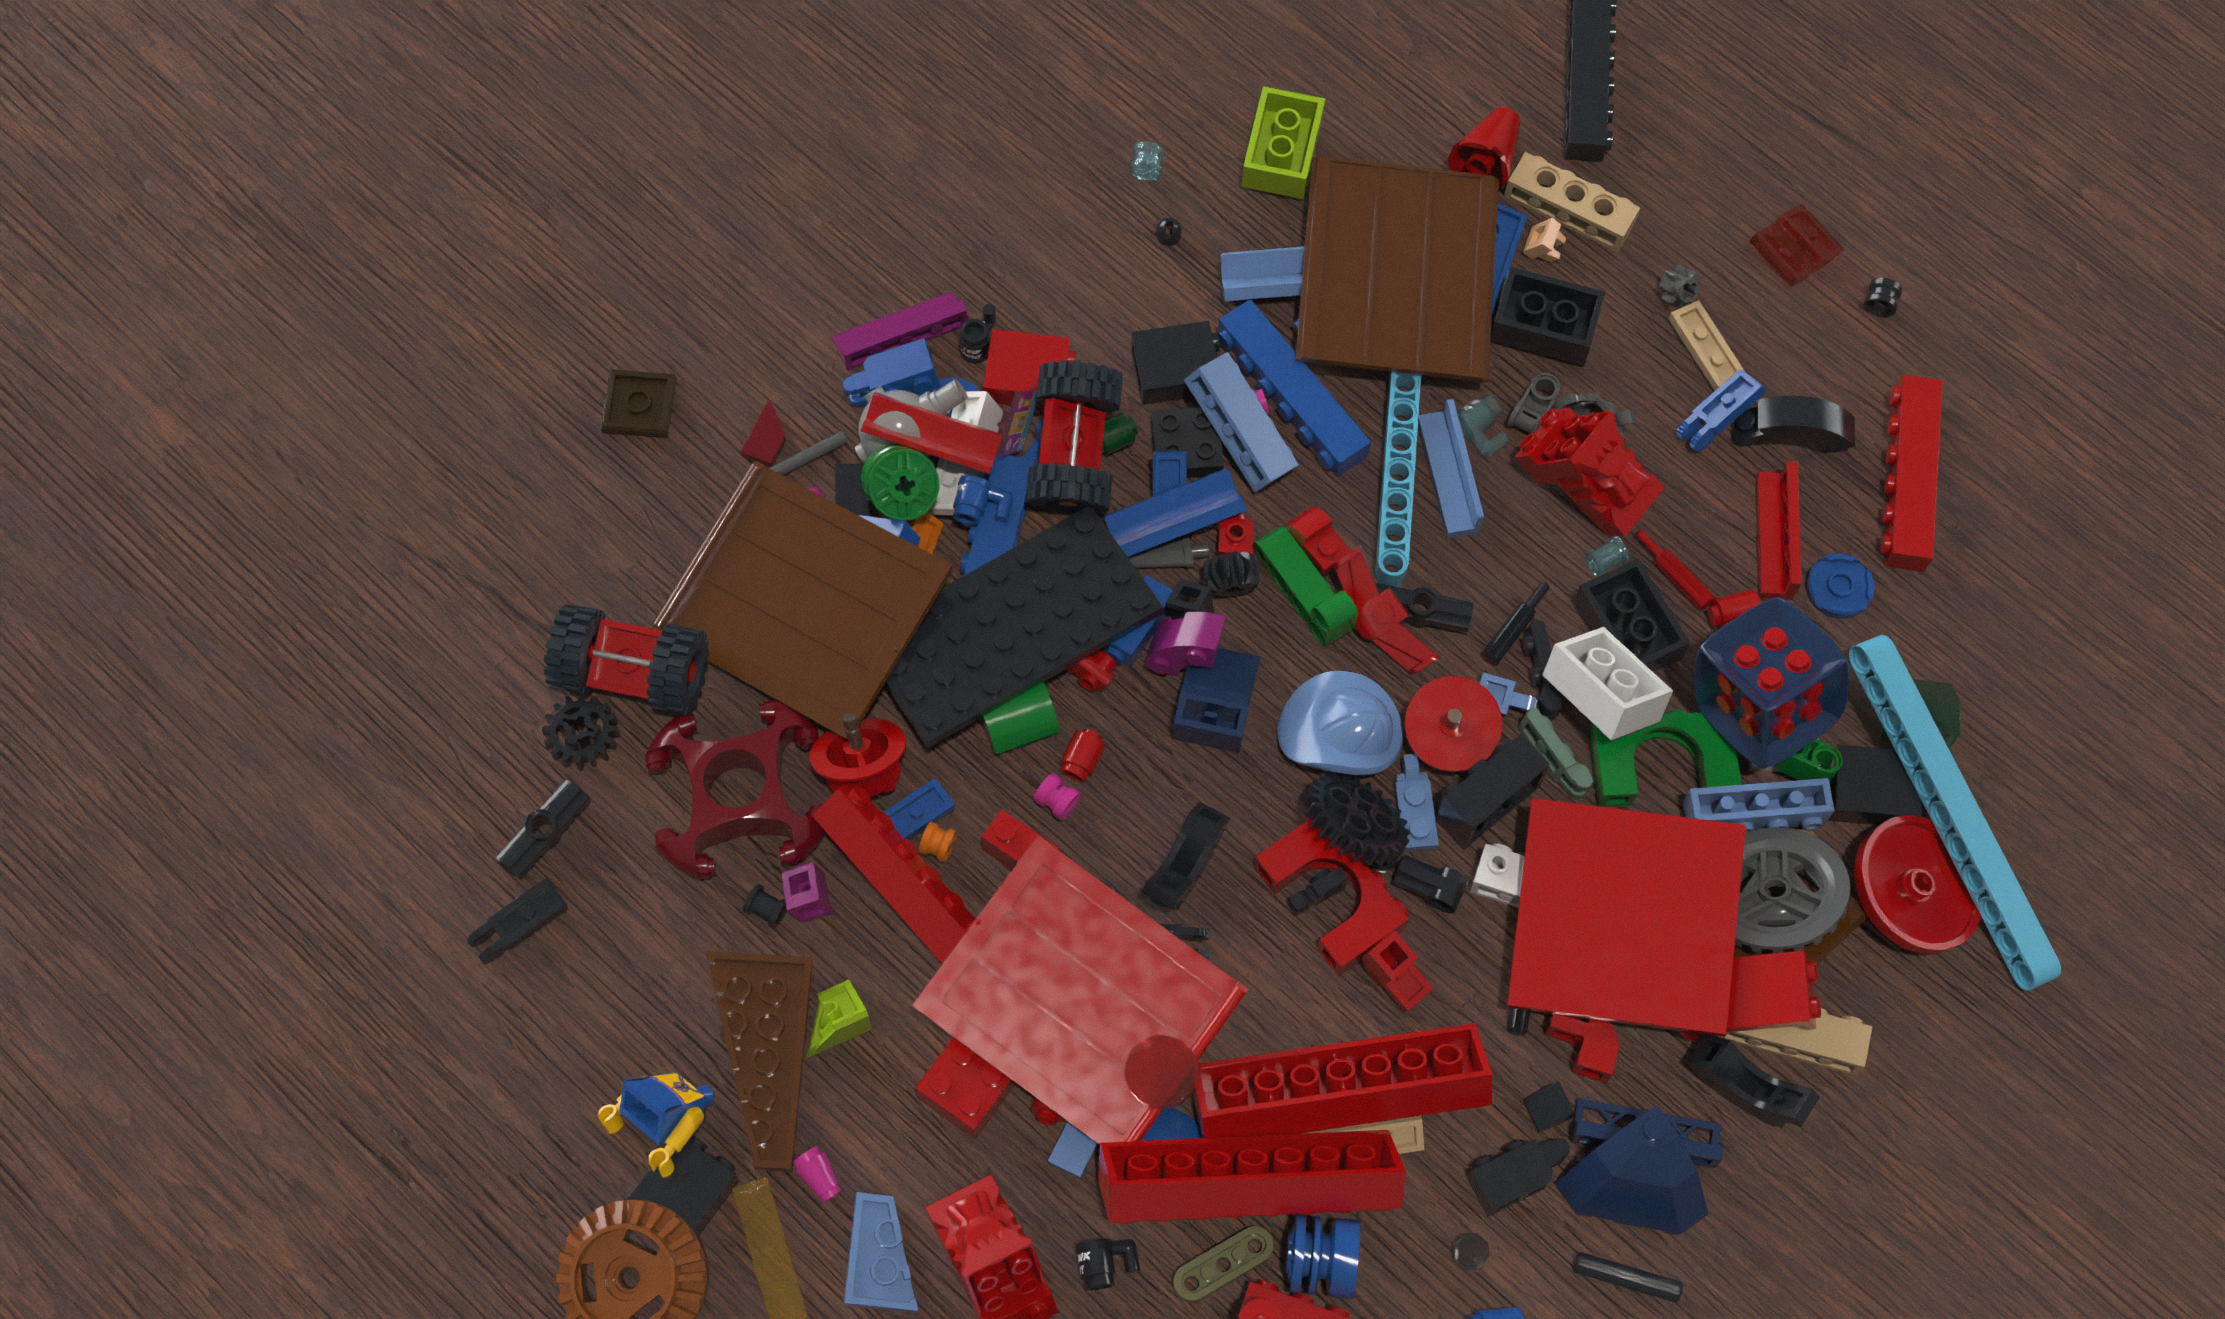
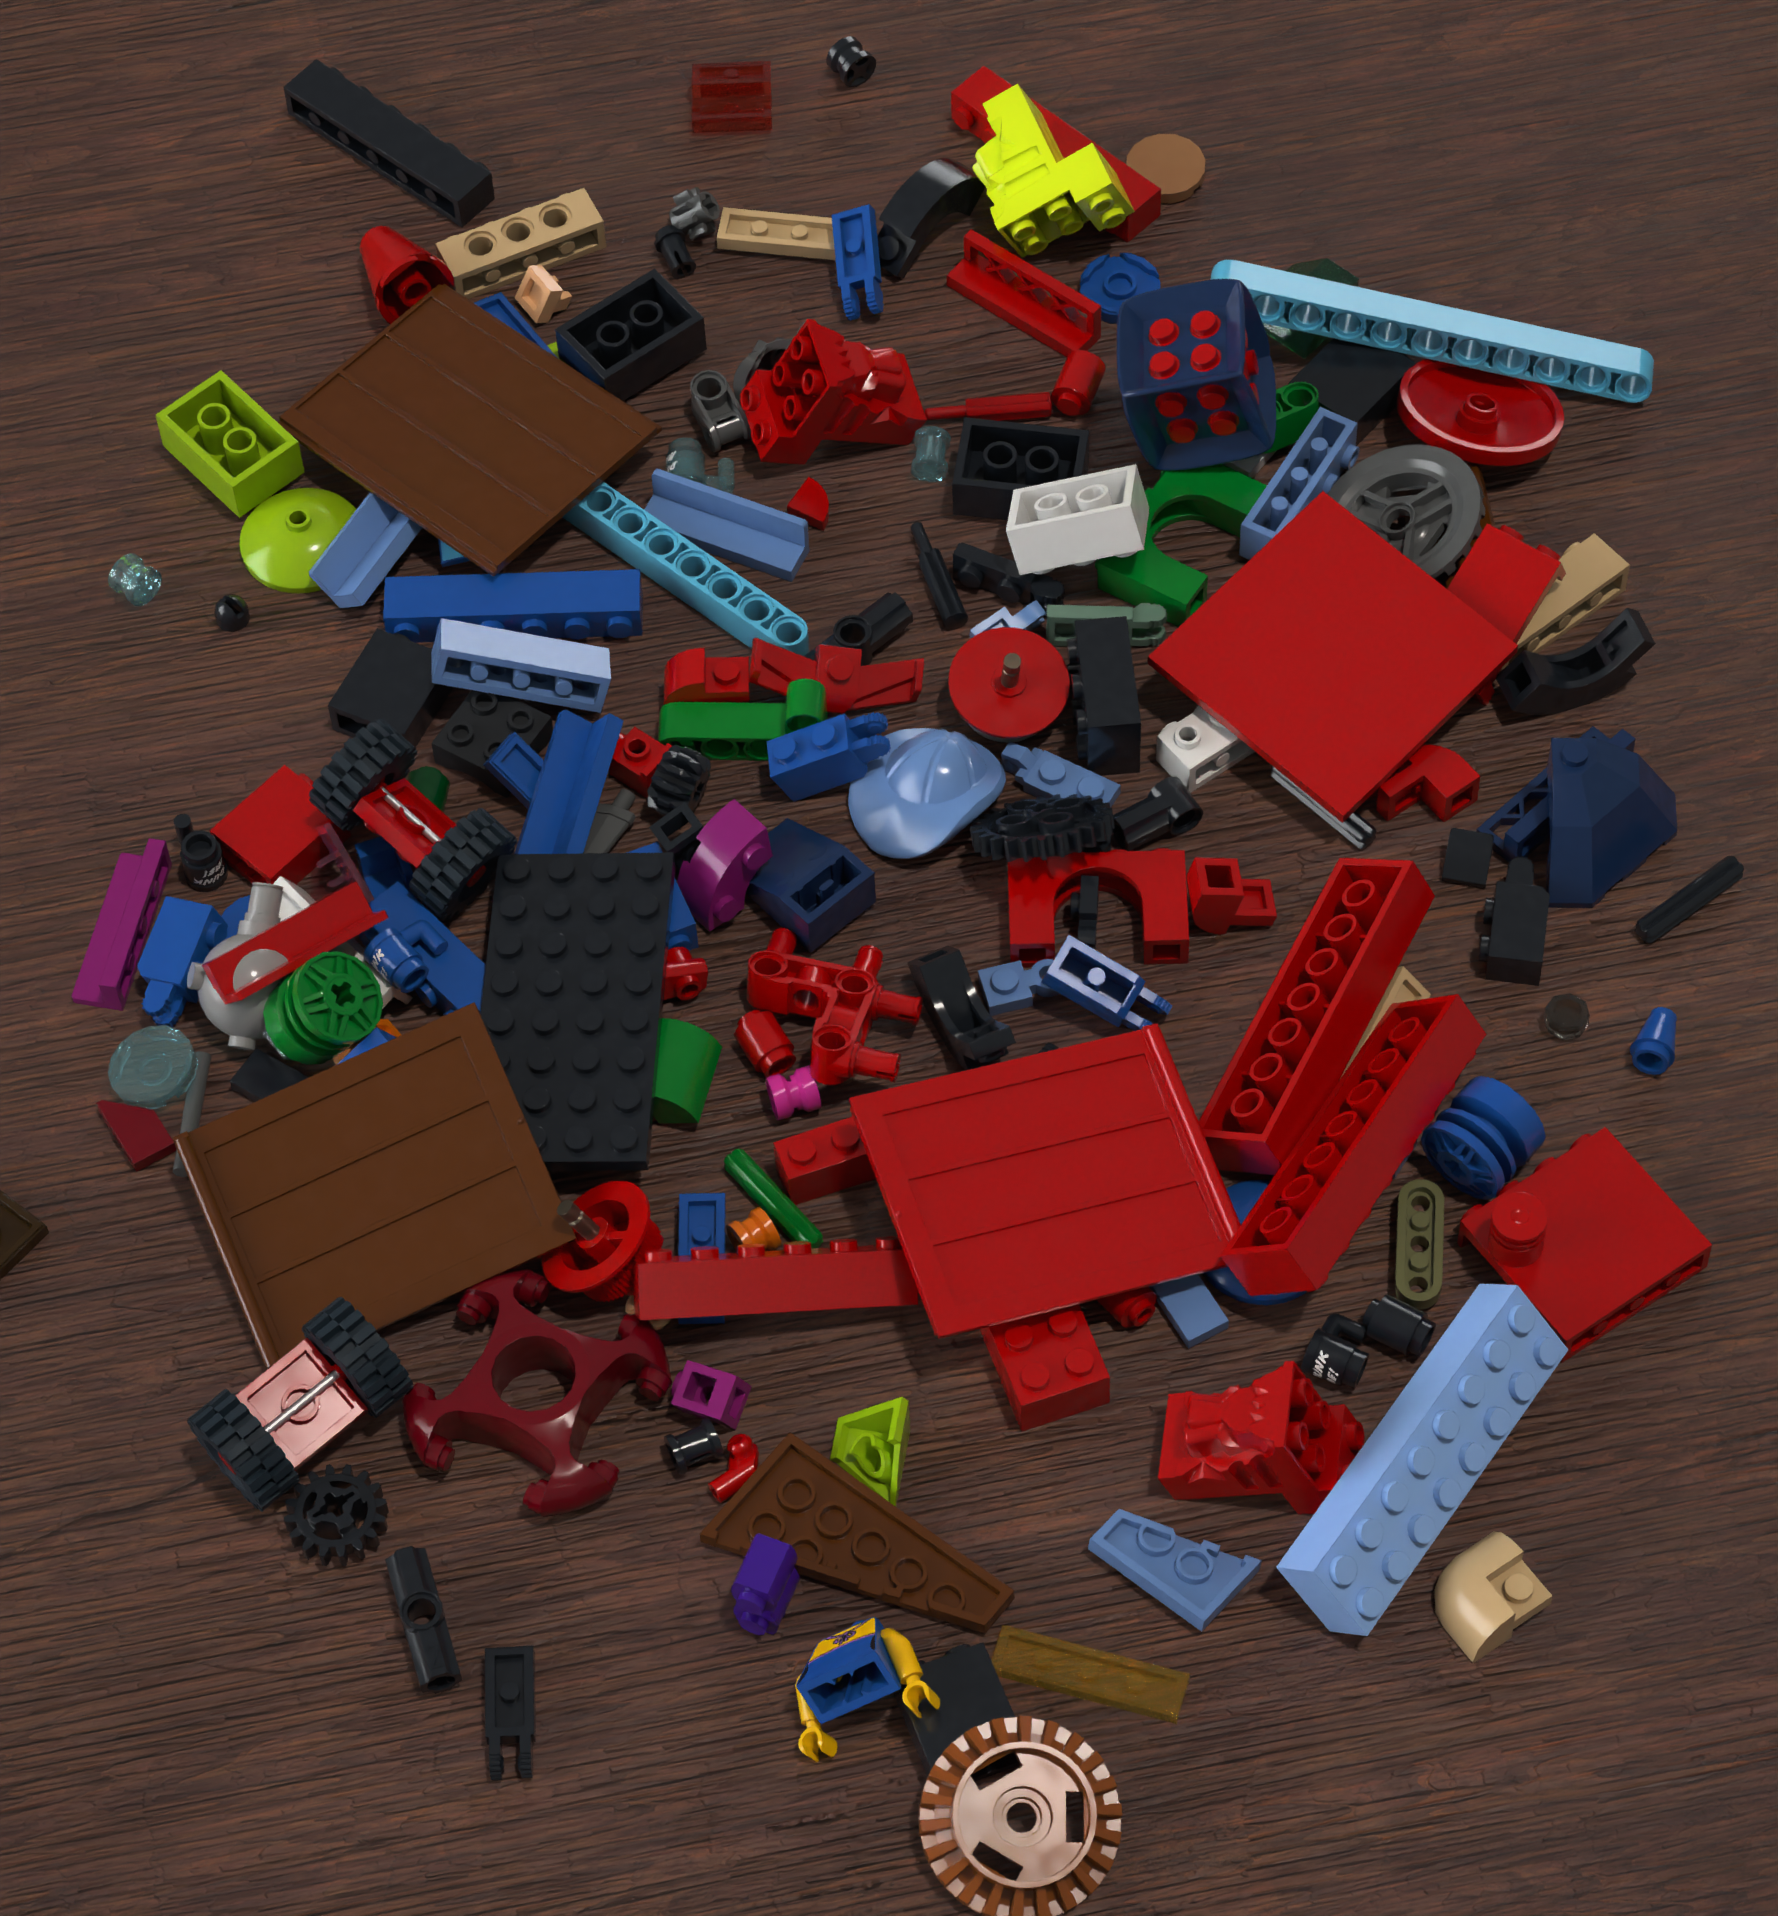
camera: 50 degrees left, 10 degrees down
(687, 1014) = (765, 1585): none -> dark purple brick
(775, 944) = (742, 1464): none -> red arm
(813, 415) = (152, 1066): none -> clear light blue tile
(817, 1173) = (1037, 1570): dark pink cone -> none
(972, 842) = (771, 1198): none -> green axle
(1126, 792) = (841, 1000): none -> red pin
(1150, 1289) = (1398, 1325): none -> black brick
(1161, 1071) = (1186, 1154): clear red tile -> none
(1231, 226) = (281, 550): none -> lime dish
(1237, 877) = (1011, 988): none -> medium blue plate
(1267, 935) = (1101, 985): none -> blue hinge
(1313, 646) = (826, 754): none -> blue hinge
(1512, 509) = (810, 504): none -> red tile
(1646, 289) = (671, 243): none -> black pin
(1866, 477) = (1037, 189): none -> neon yellow brick
(1964, 550) = (1169, 163): none -> medium nougat tile

